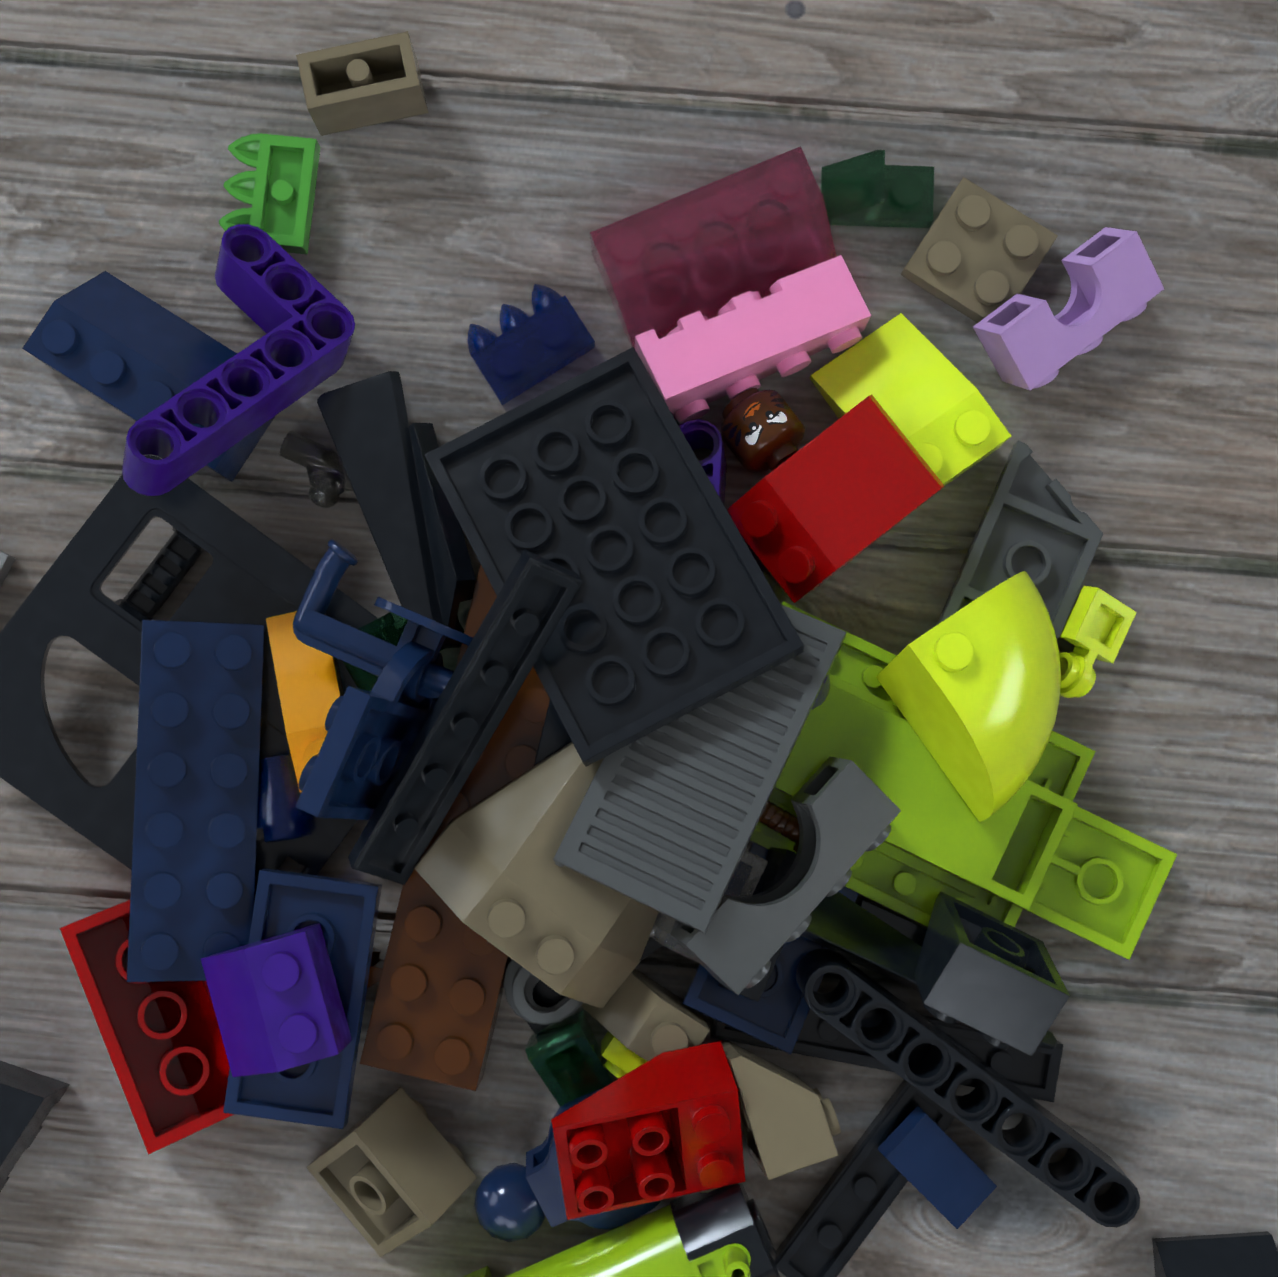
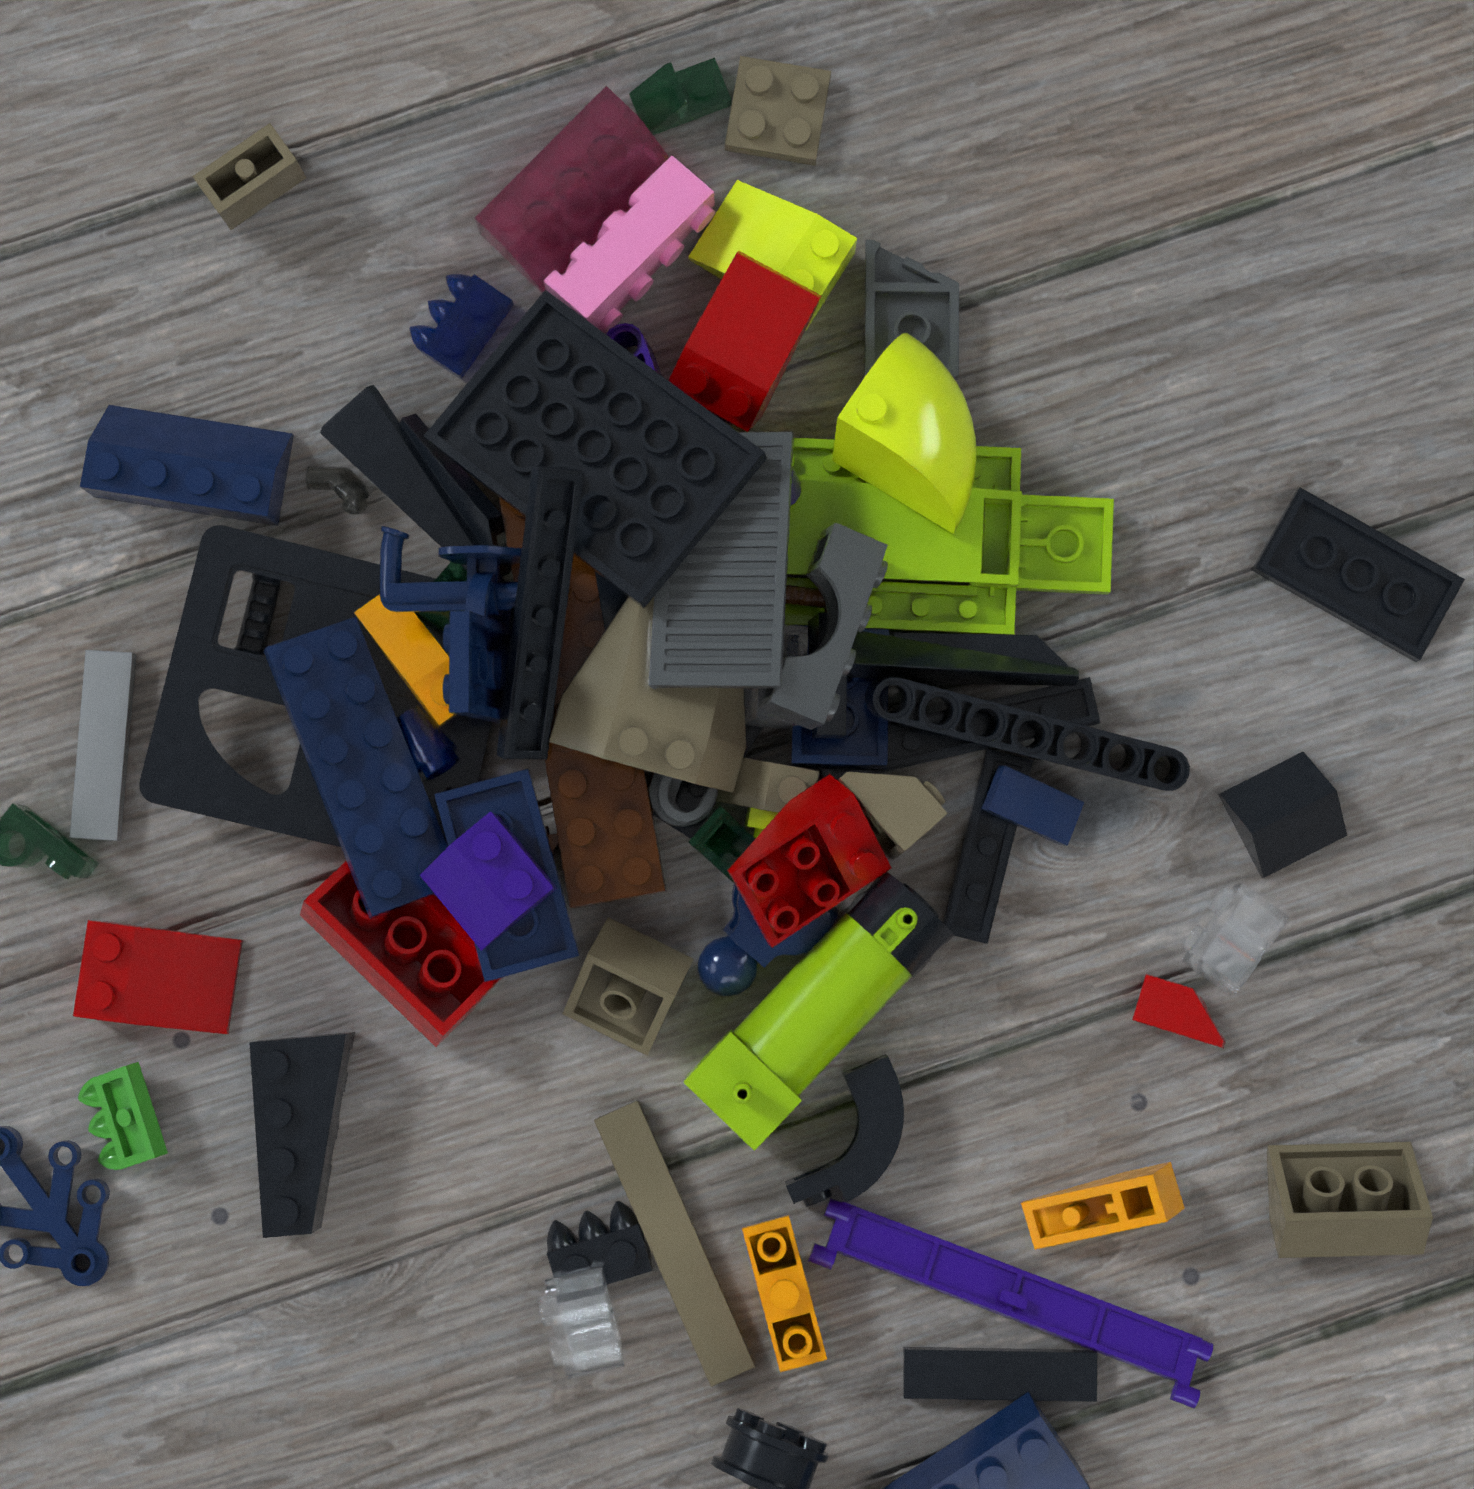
camera: 25 degrees left, 0 degrees up
(278, 189) = (217, 286): bright green plate -> none
(302, 348) = (291, 397): dark purple beam -> none
(761, 429) = (667, 313): reddish brown head -> none
(988, 976) = (1003, 641): black slope -> none
(1097, 631) = (985, 357): neon yellow plate -> none
(1108, 286) = (885, 94): lavender arch -> none

